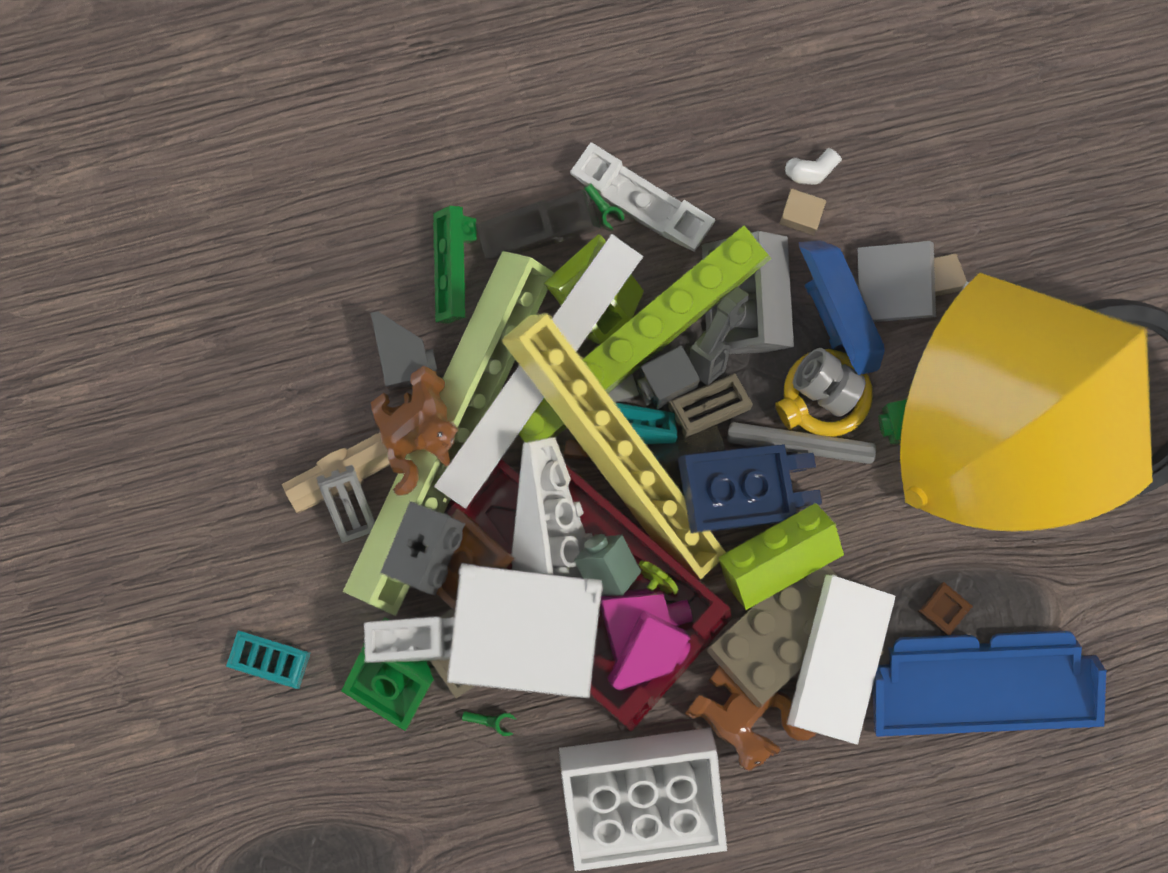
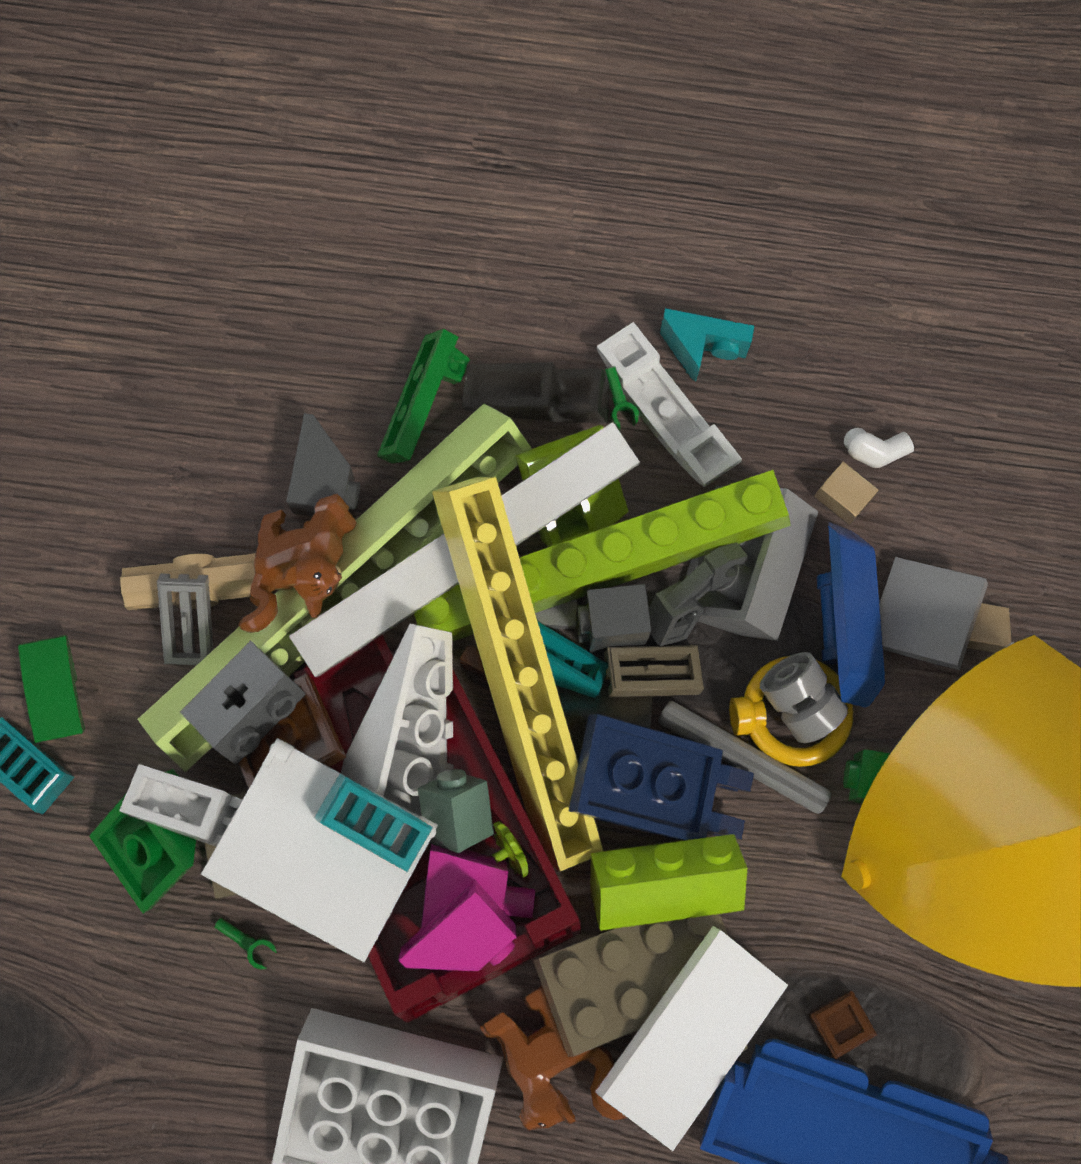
camera: 20 degrees right, 5 degrees down
(266, 594) = (50, 688): none -> green slope
(523, 592) = (334, 800): none -> teal slope
(638, 134) = (692, 333): none -> teal slope

